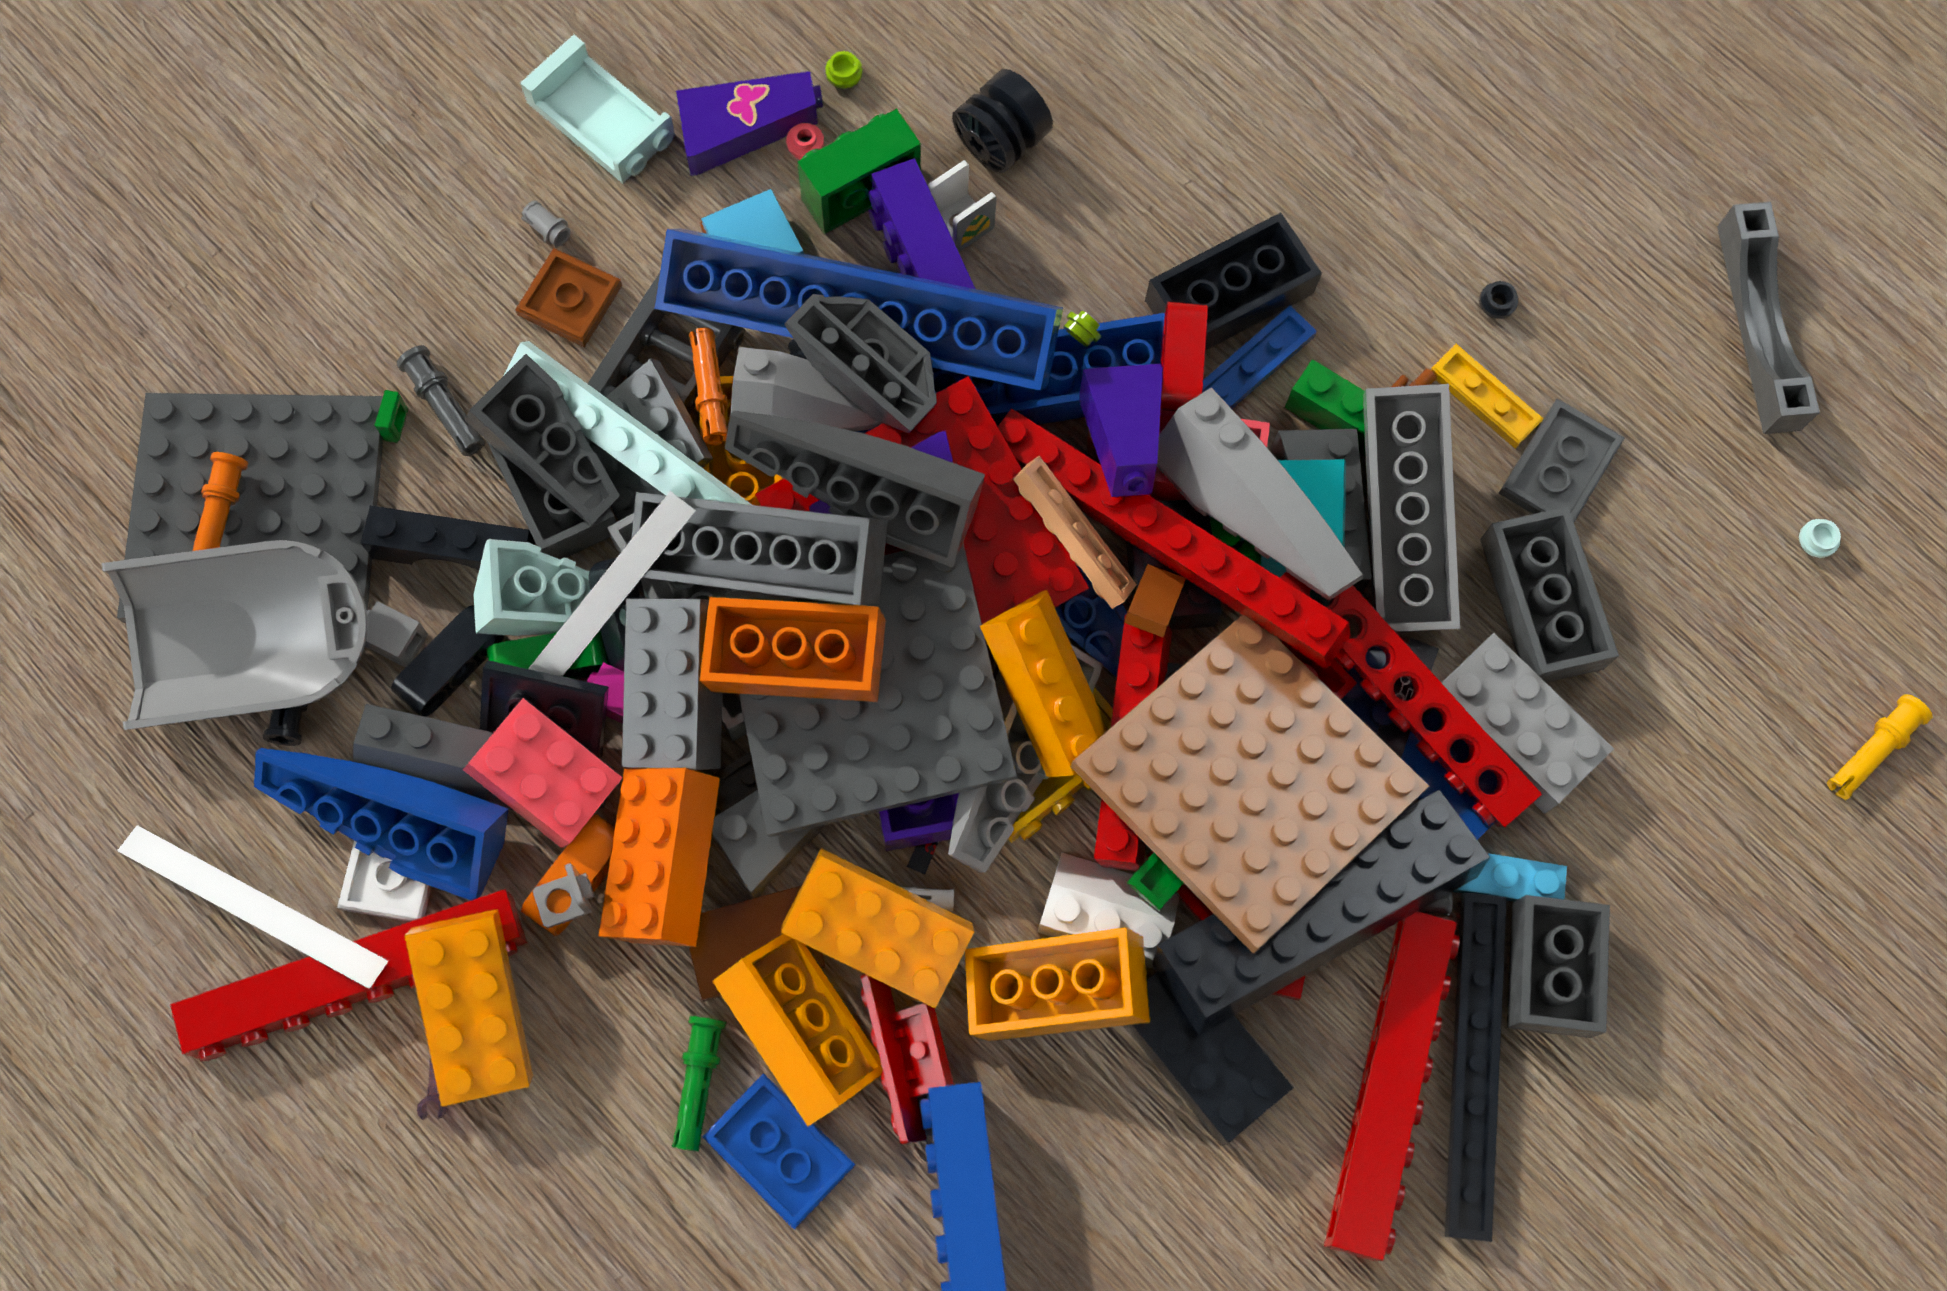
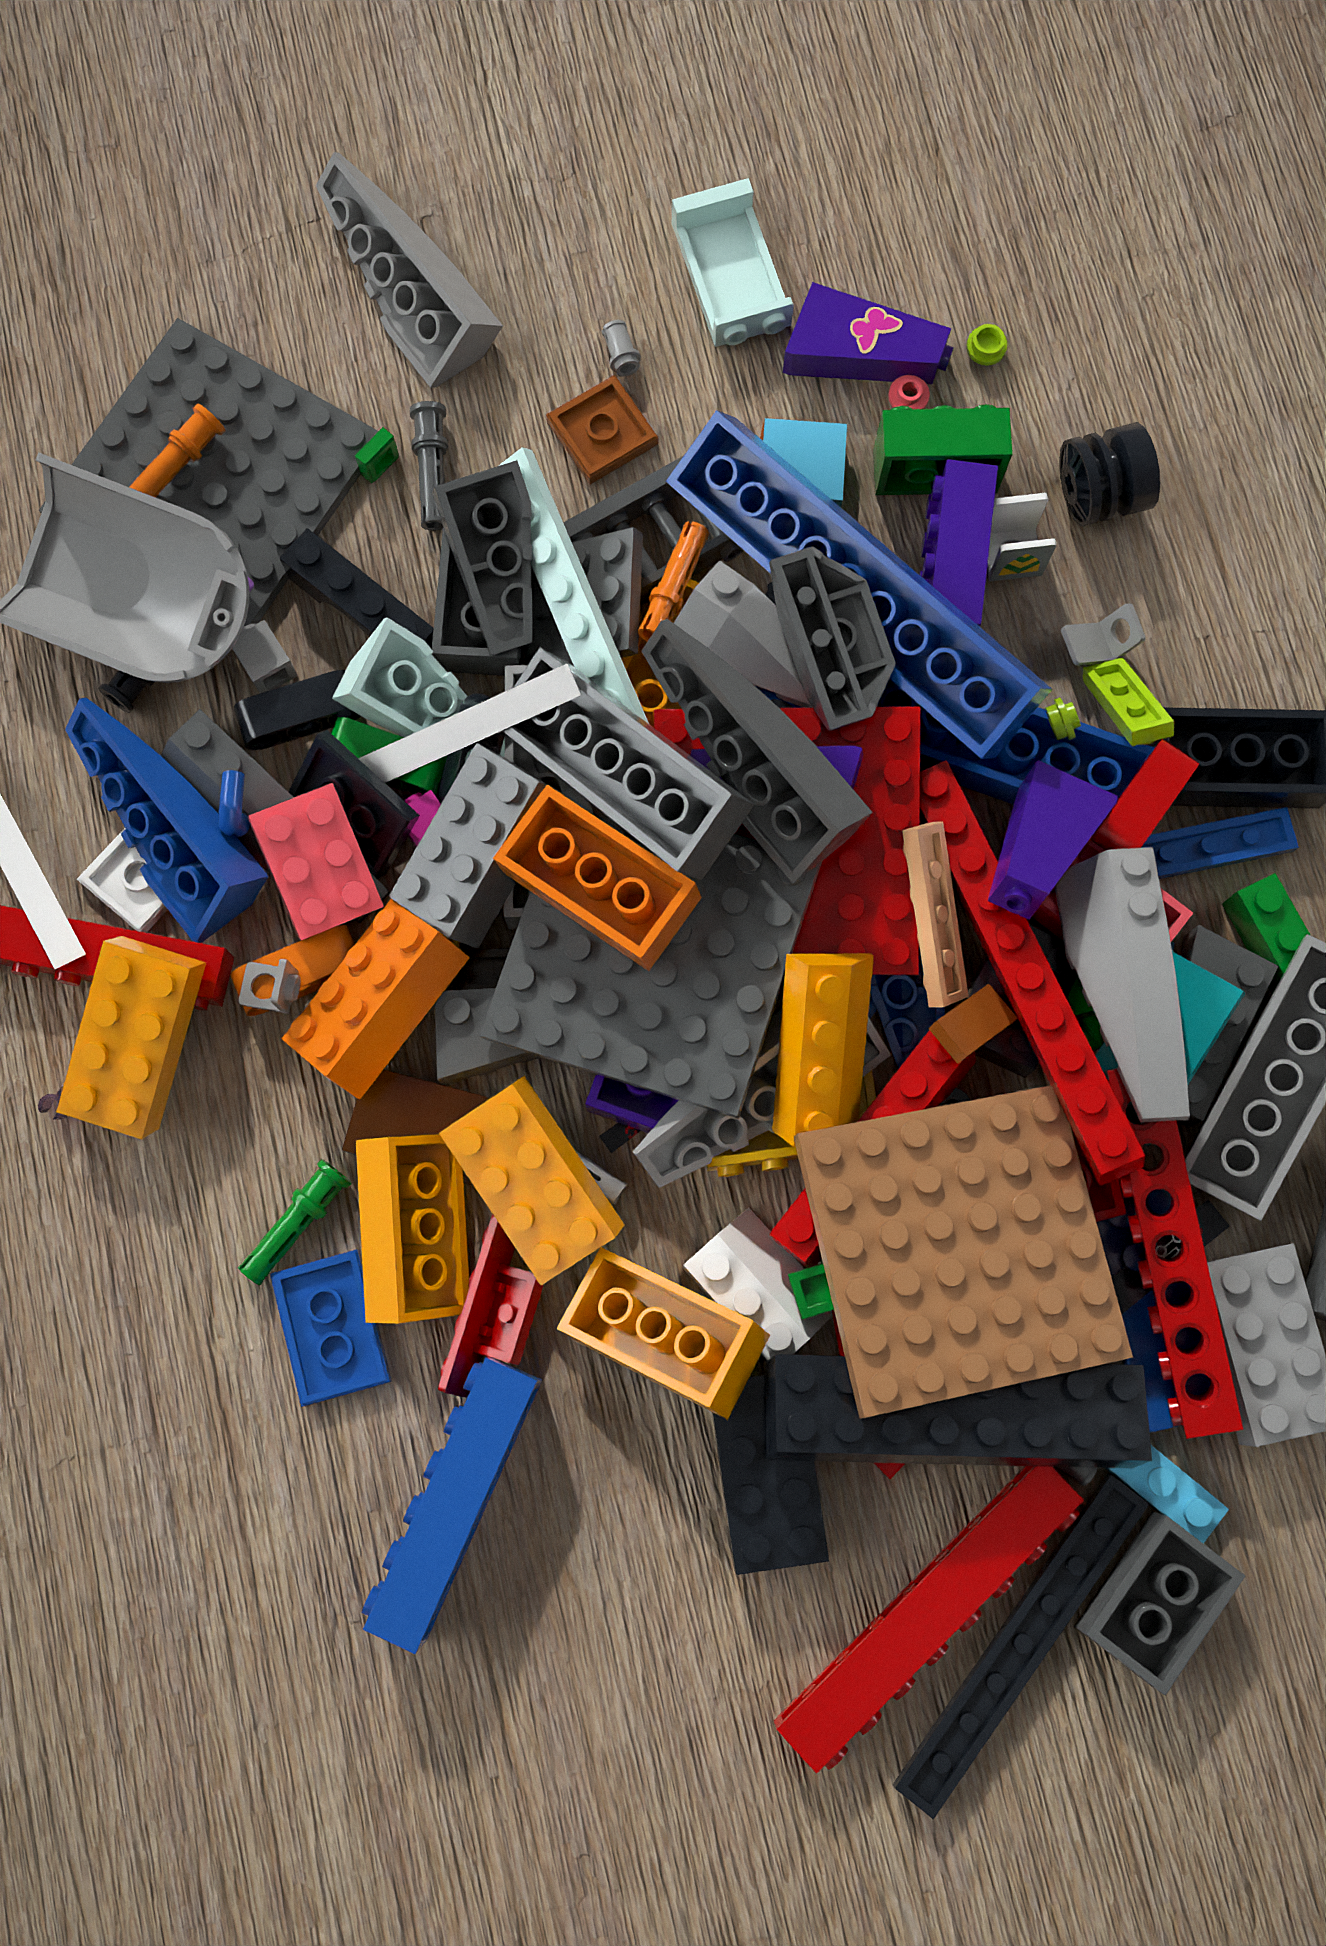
camera: 35 degrees right, 5 degrees up
(340, 261) = (419, 290): none -> light grey wedge
(447, 776) = (230, 816): none -> blue arm
(1069, 256) = (1098, 641): none -> light grey bracket
(1122, 288) = (1128, 702): none -> lime plate

